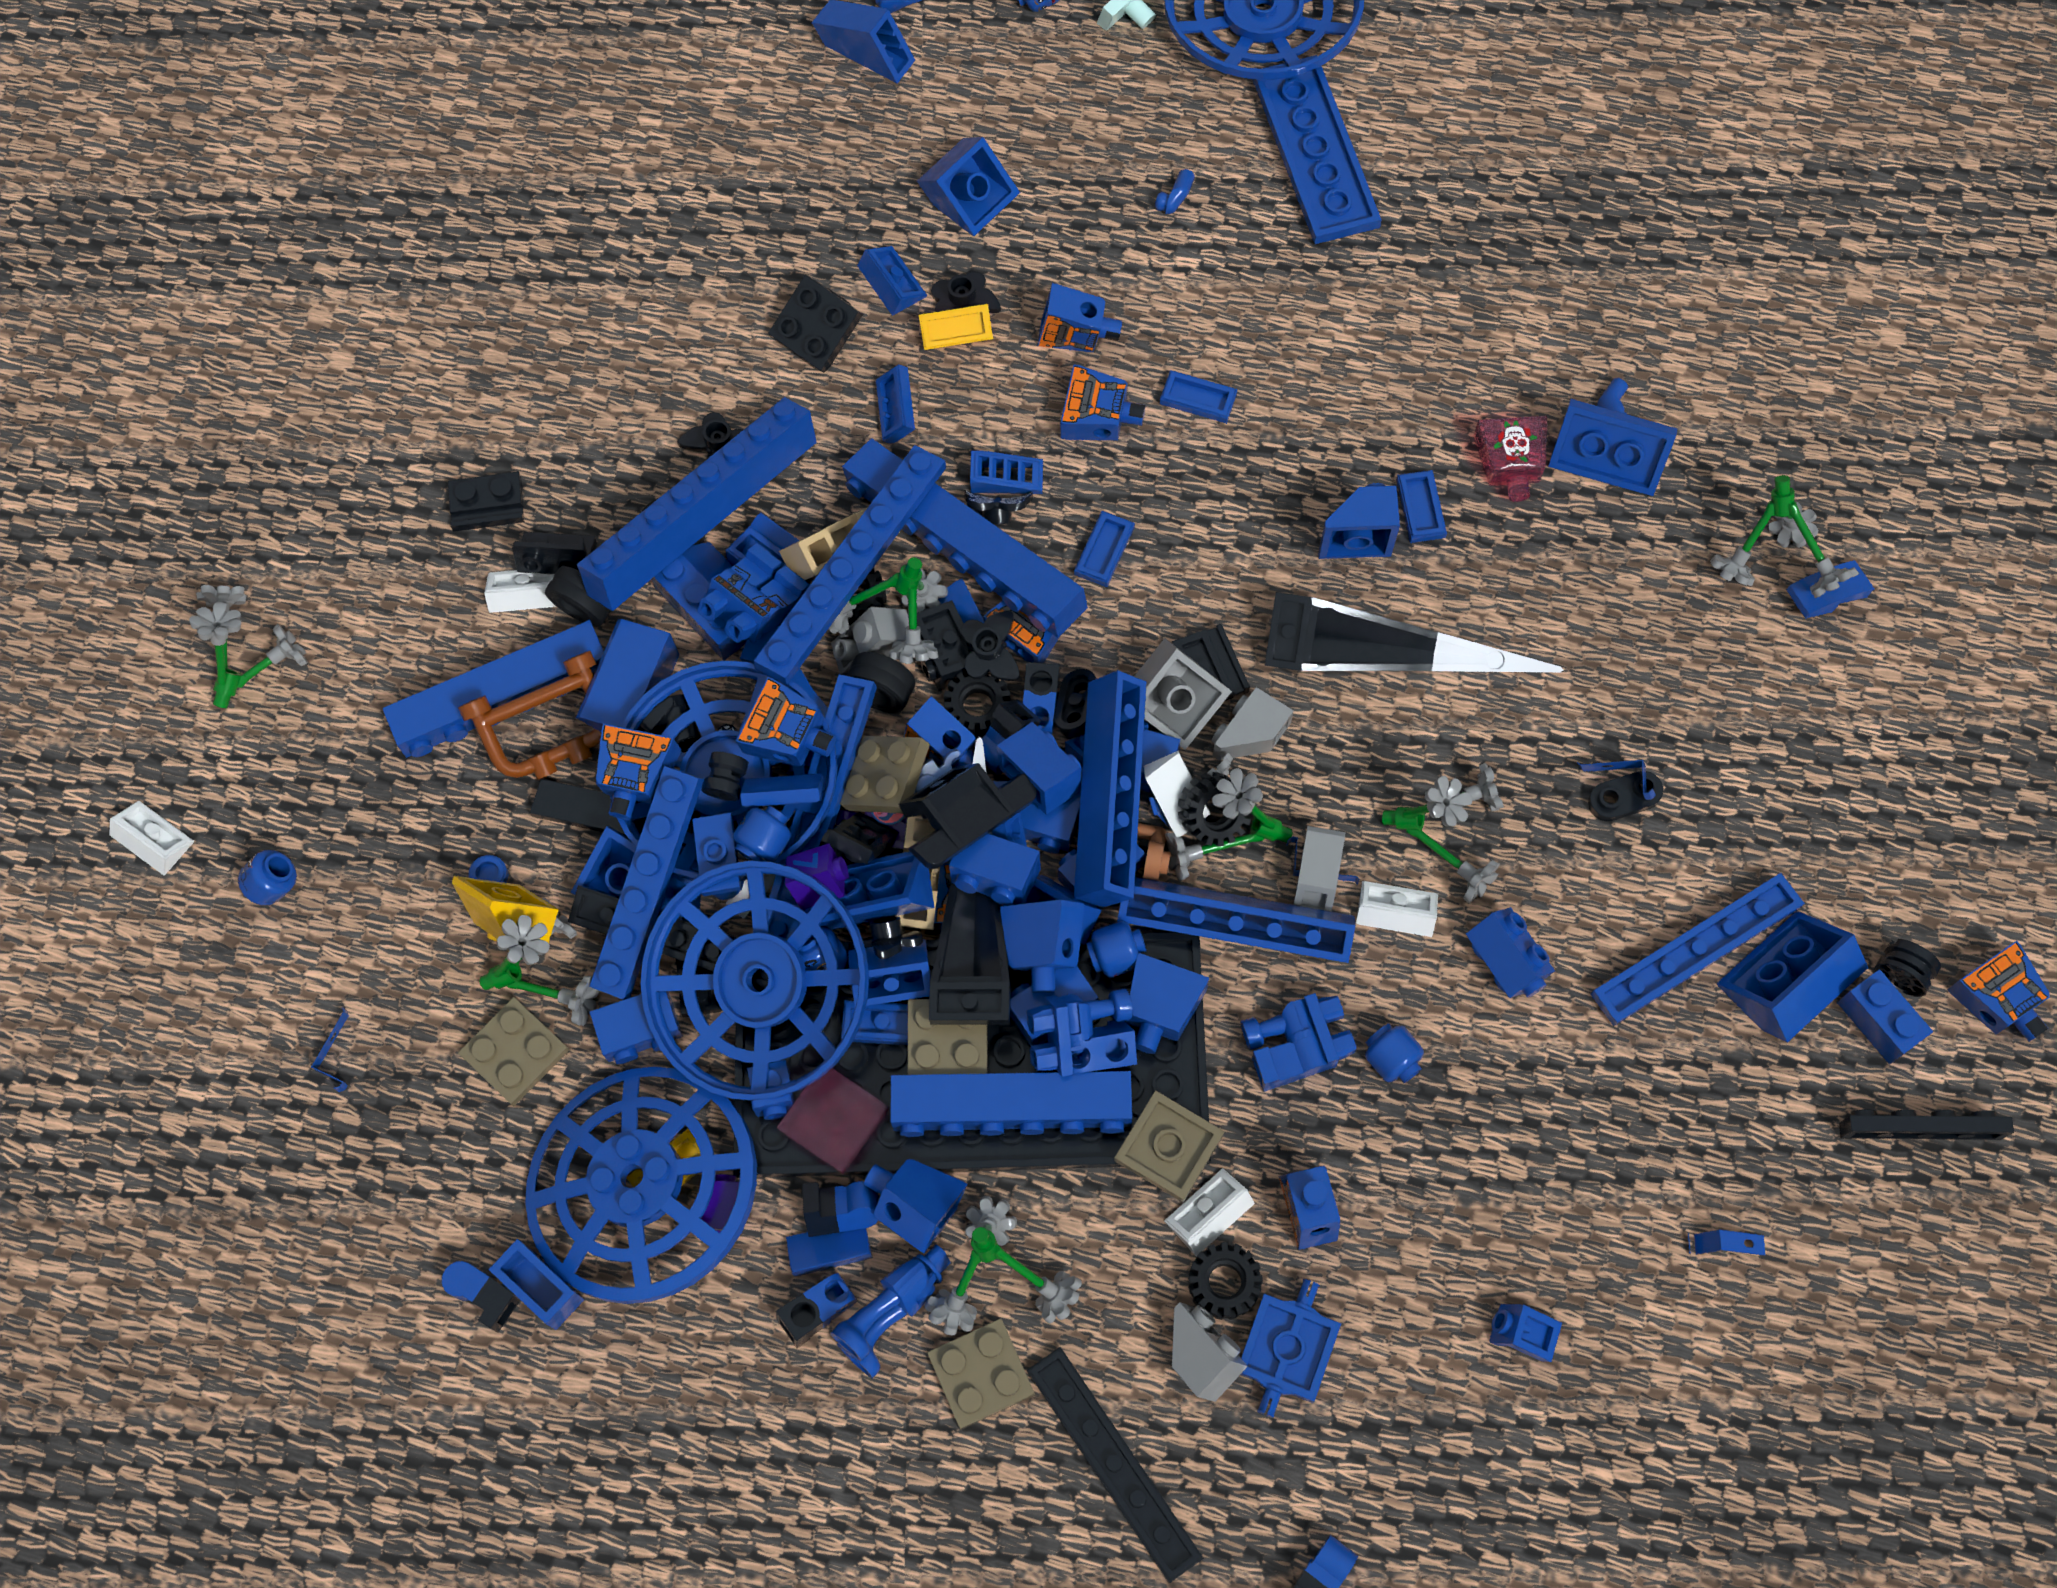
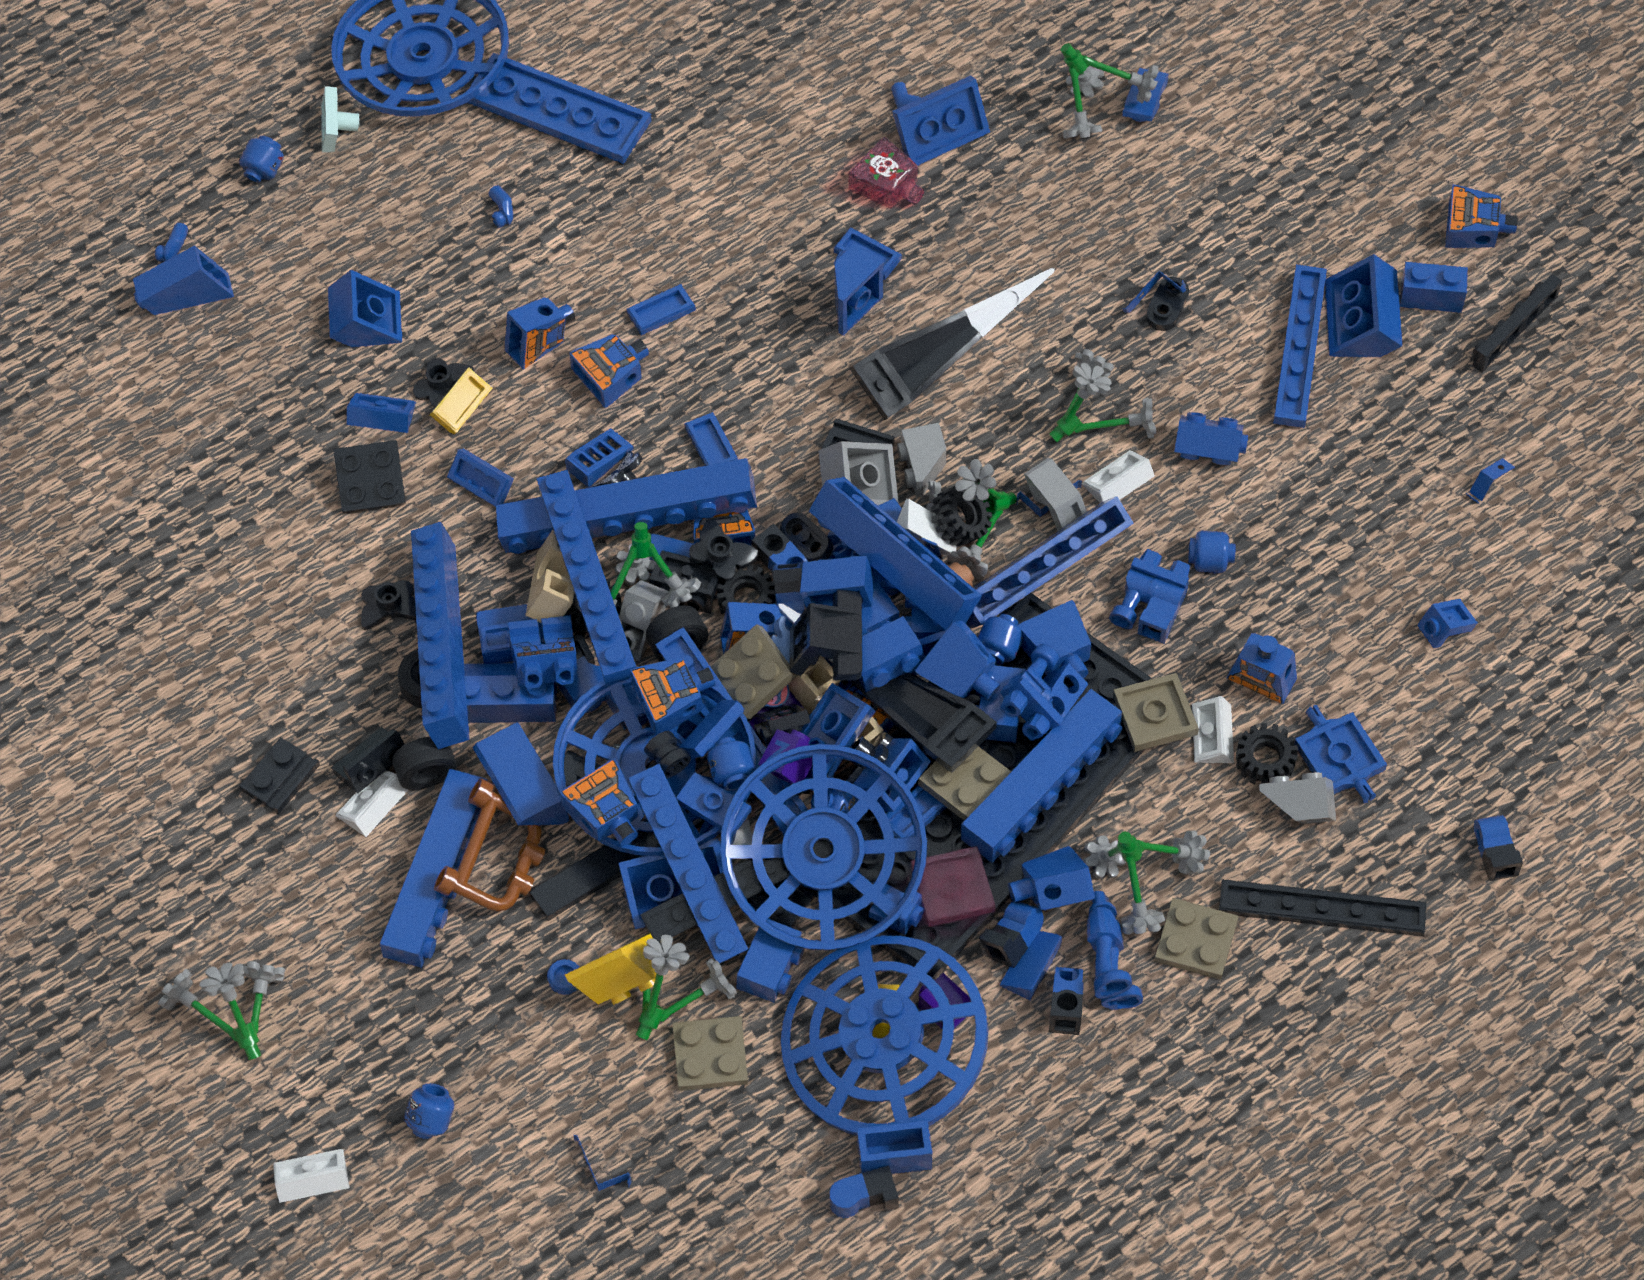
camera: 50 degrees left, 10 degrees down
(1909, 966) = (1415, 246): black wheel -> none

